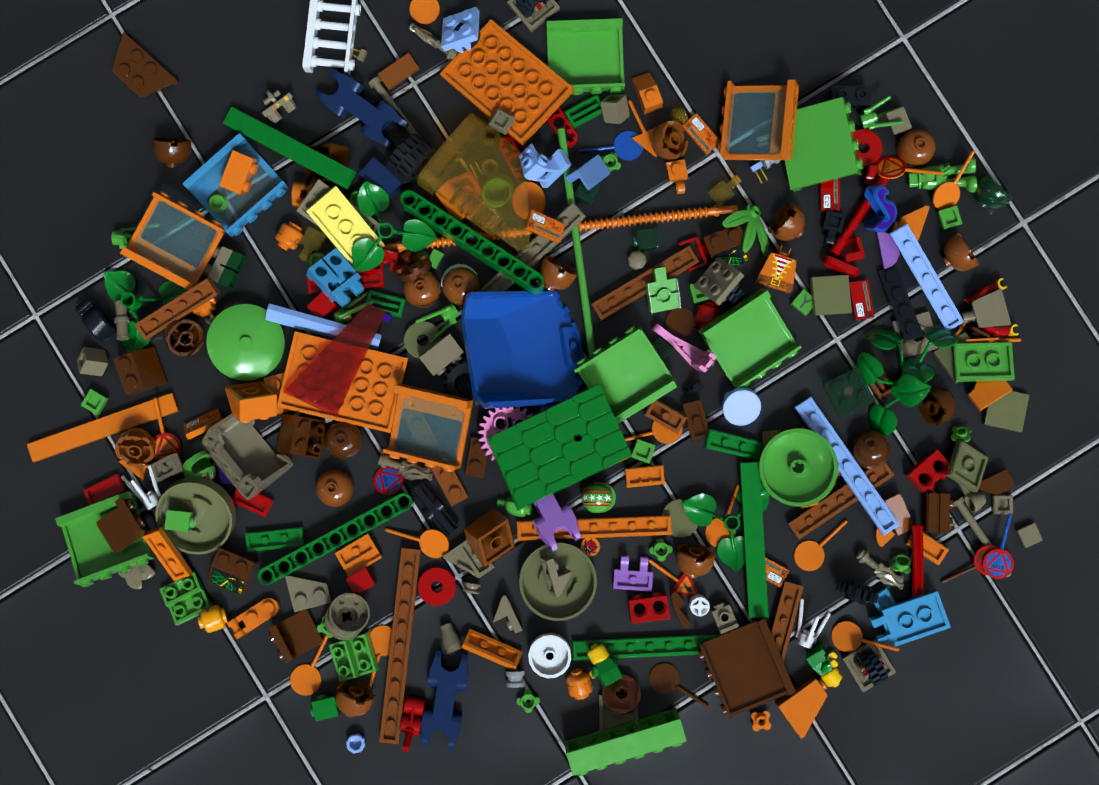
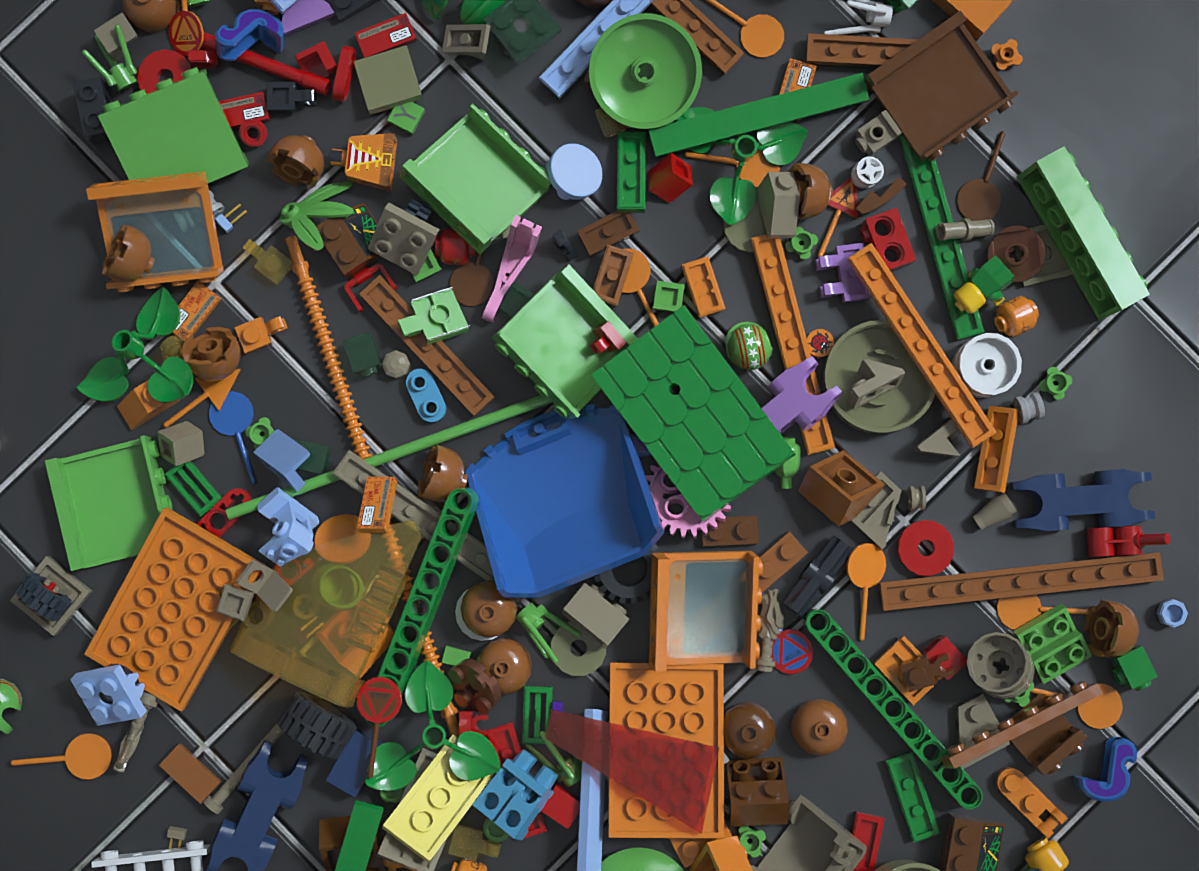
camera: 110 degrees left, 0 degrees up
(256, 677) = (1114, 773): none -> blue animal
(271, 430) = (757, 838): none -> bright green plate
(308, 629) = (1009, 729): none -> dark orange plate
(354, 562) = (922, 673): none -> reddish brown plate
(416, 200) = (378, 702): none -> piece
(507, 146) = (268, 587): none -> dark tan bracket
(572, 613) = (921, 345): none -> orange tile
(612, 276) = (425, 395): none -> dark azure plate
(623, 403) = (607, 338): none -> red tile
(645, 663) = (965, 229): none -> dark tan pin
(658, 112) = (170, 382): none -> green plant
(689, 539) = (779, 204): none -> dark tan slope
(723, 470) = (670, 178): none -> red panel
(745, 99) = (128, 256): none -> dark orange cylinder
(807, 198) = (253, 141): none -> red plate
(846, 353) = (466, 40): none -> dark tan slope

